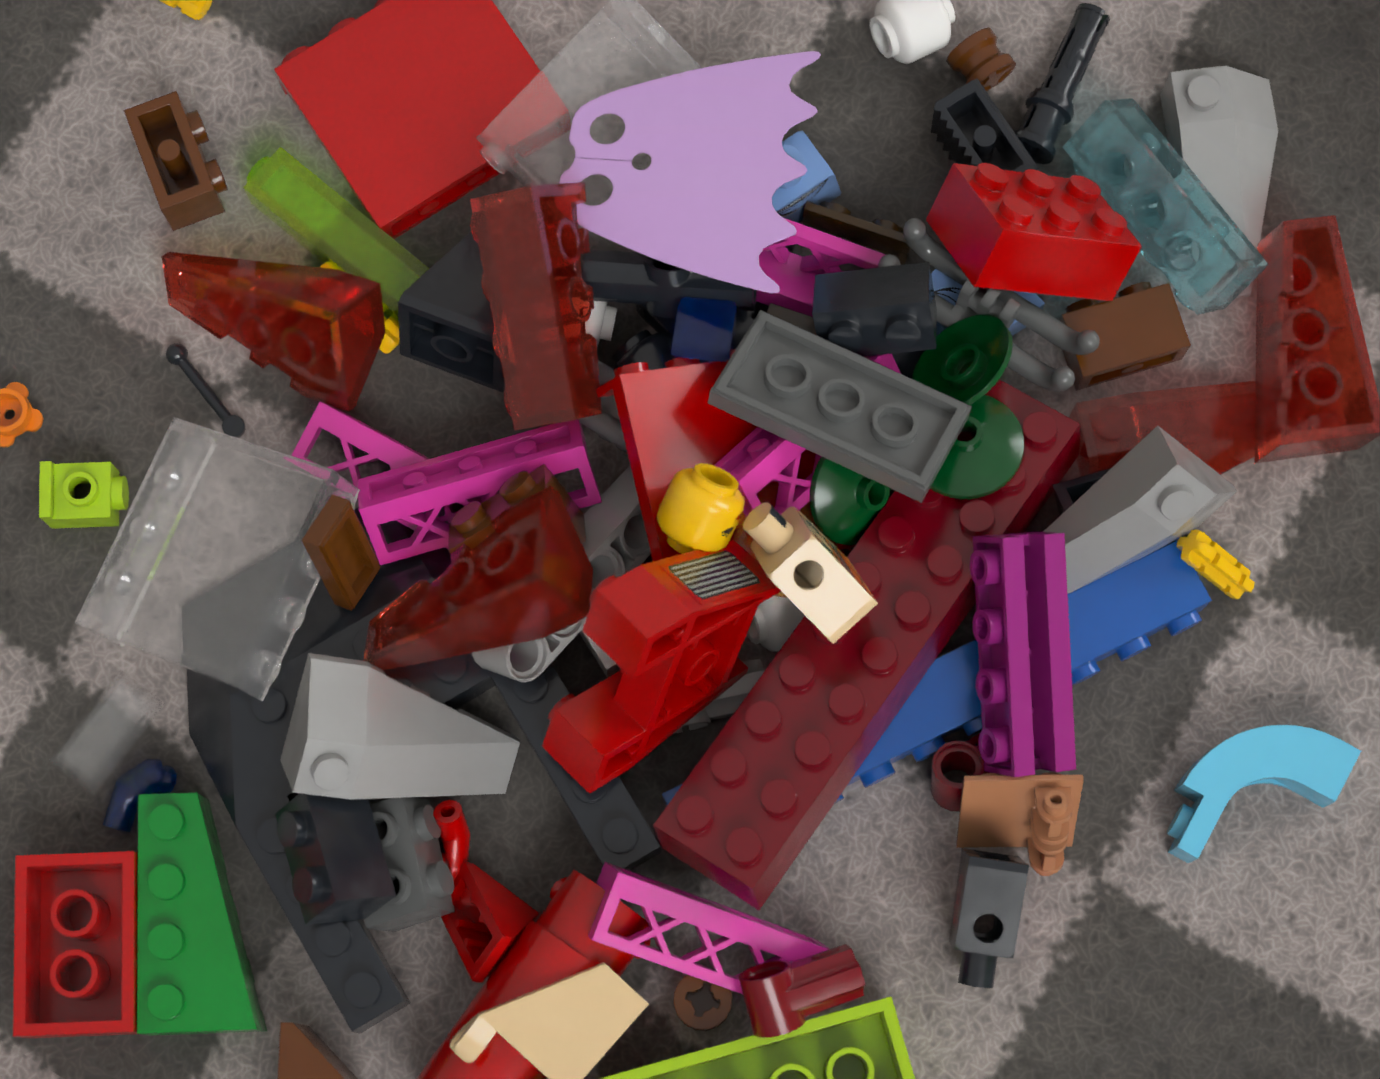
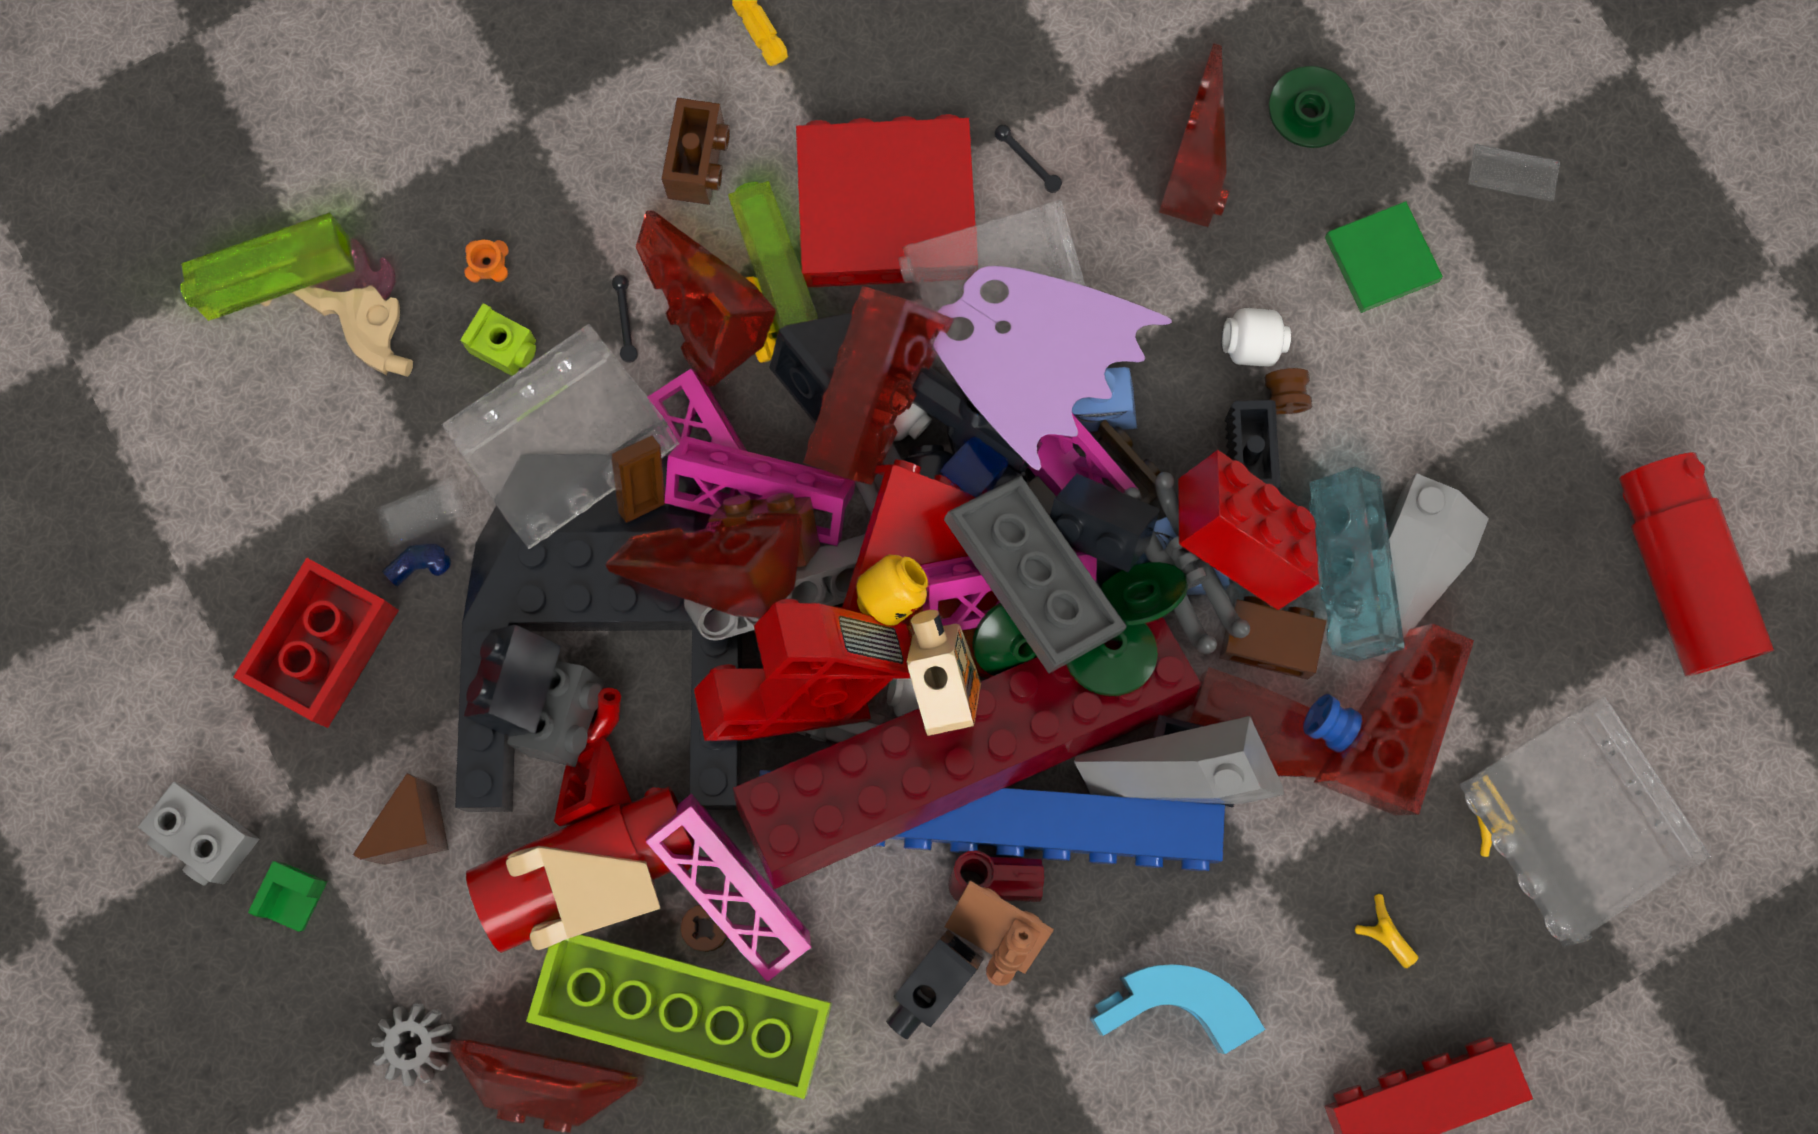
camera: 30 degrees right, 0 degrees up
(188, 927) = (392, 676): green wedge -> none
(381, 739) = (591, 622): light grey wedge -> none
(785, 992) = (757, 957): dark red piece -> none
(1023, 653) = (1062, 819): magenta brick -> none
(1052, 103) = (1320, 448): black pin -> none
(1215, 564) = (1241, 837): yellow axle -> none
(1240, 387) = (1332, 723): none -> blue wheel

